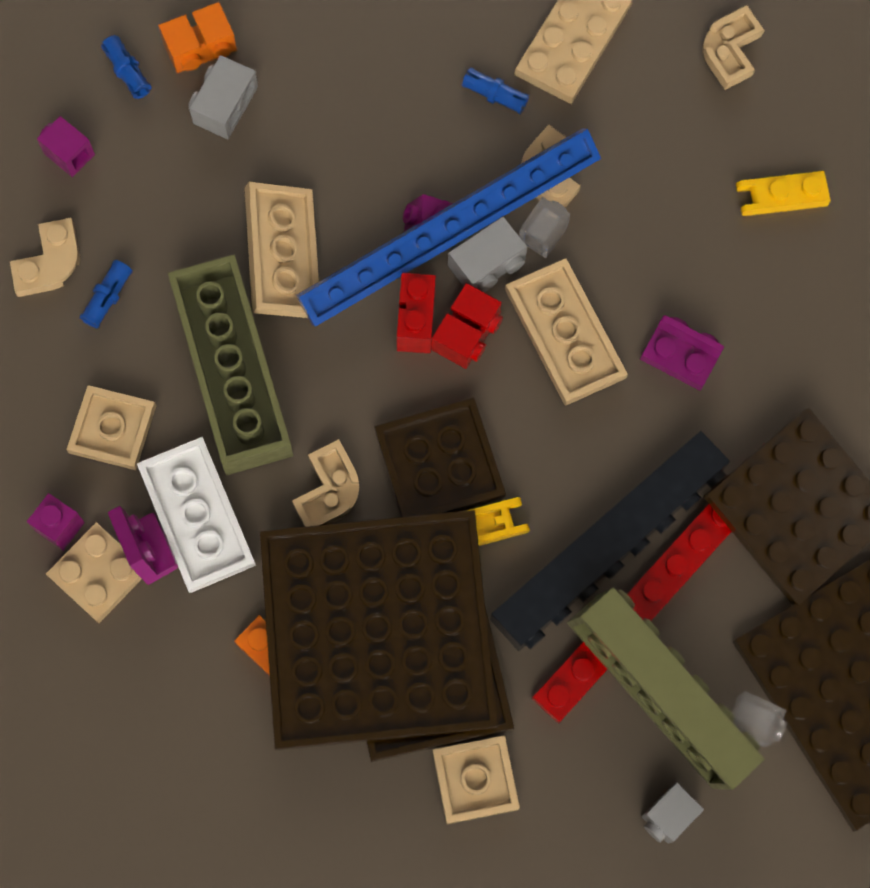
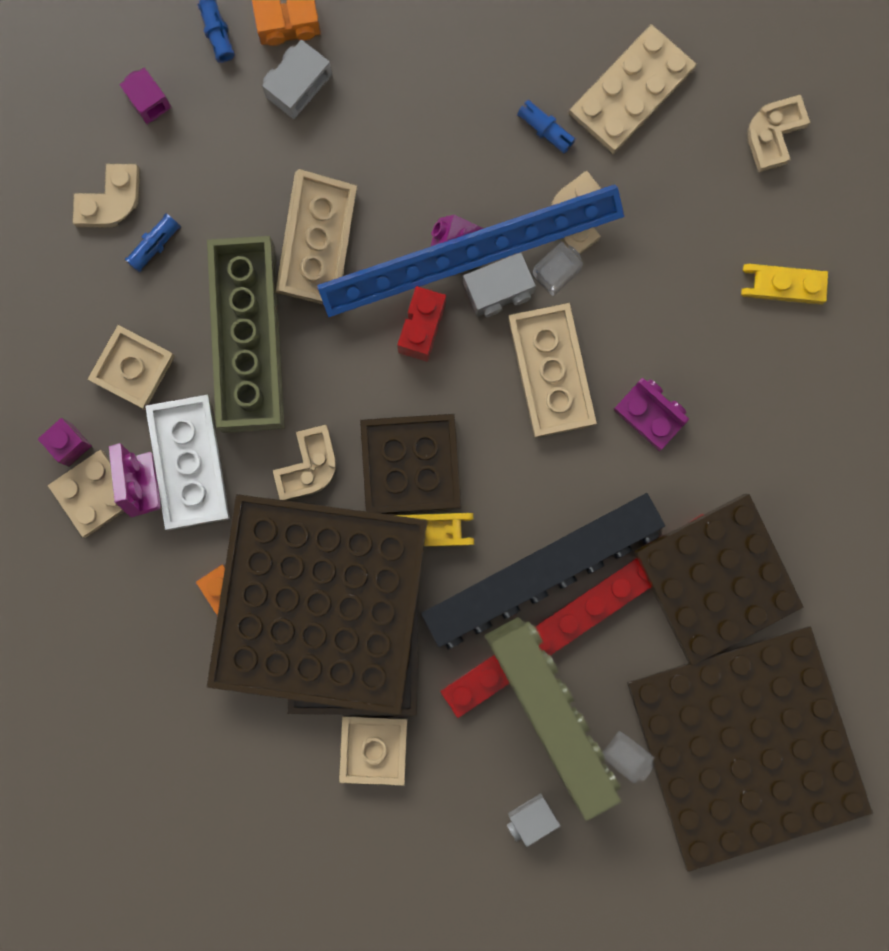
camera: 15 degrees right, 10 degrees up
(463, 332) = (465, 346): red piece -> none

